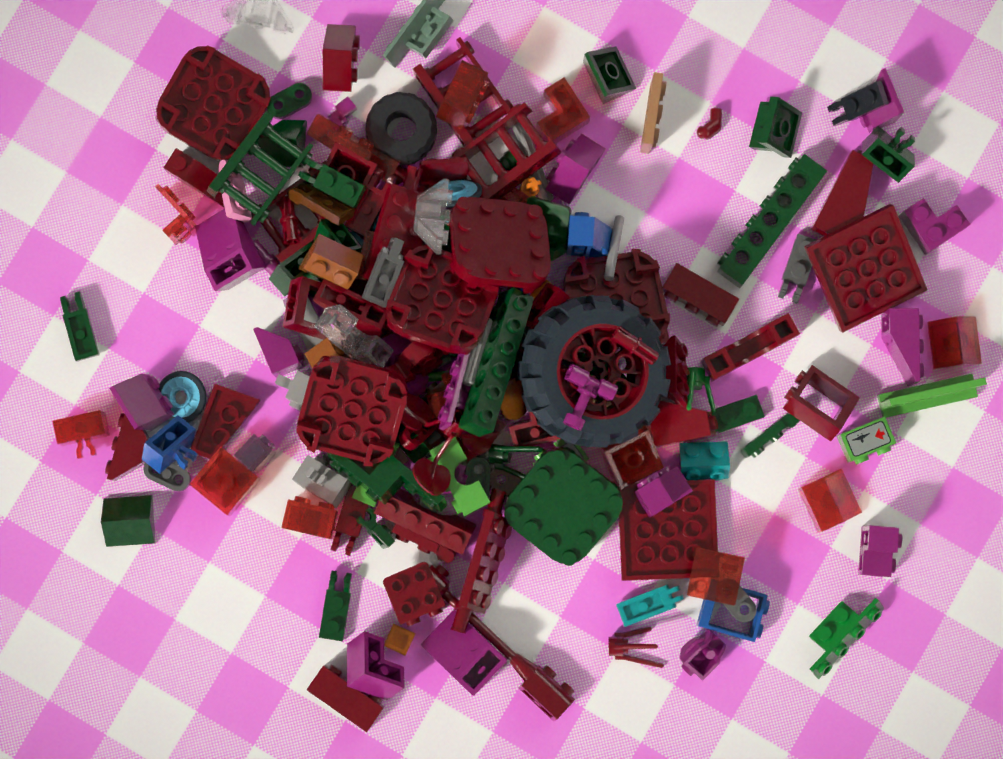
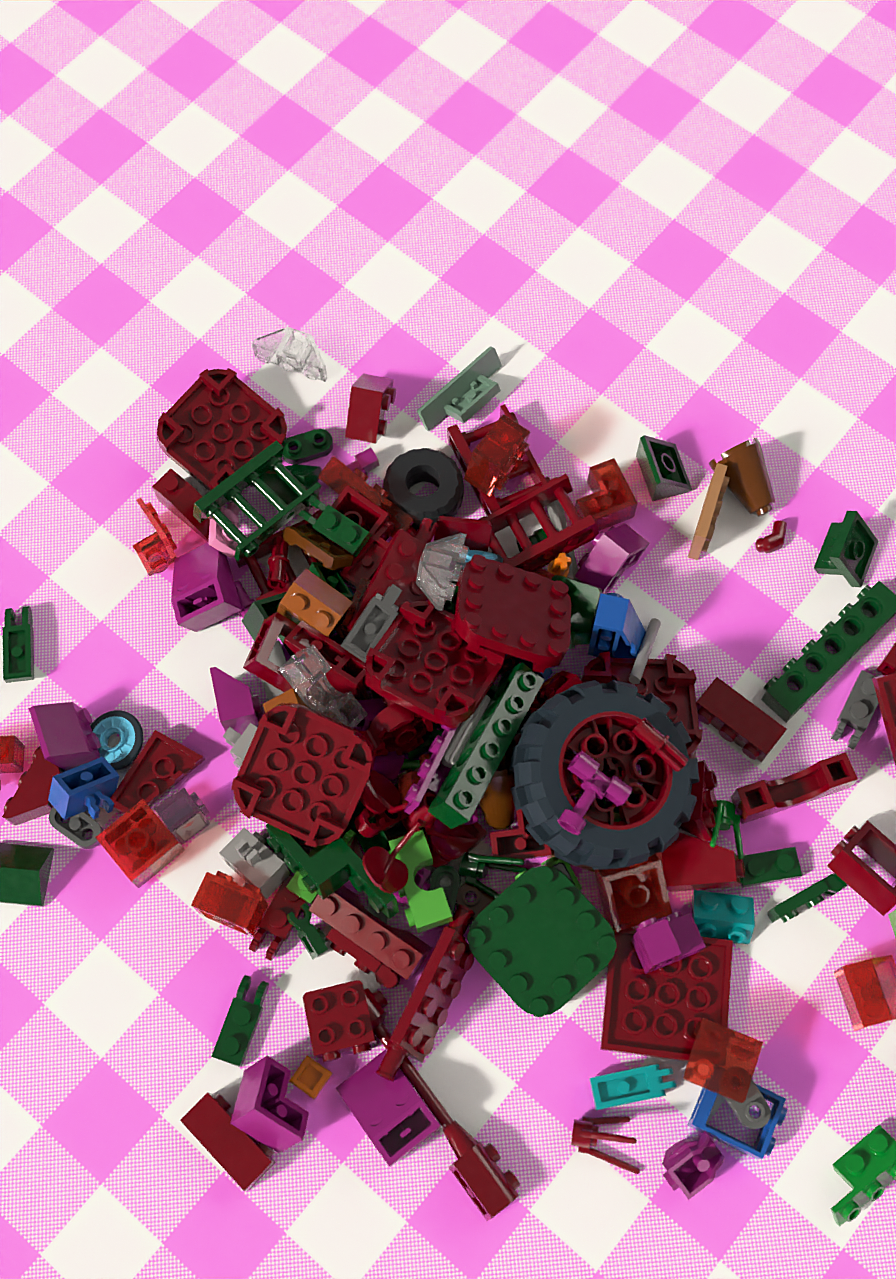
camera: 15 degrees right, 15 degrees down
(682, 72) = (748, 476): none -> reddish brown cone

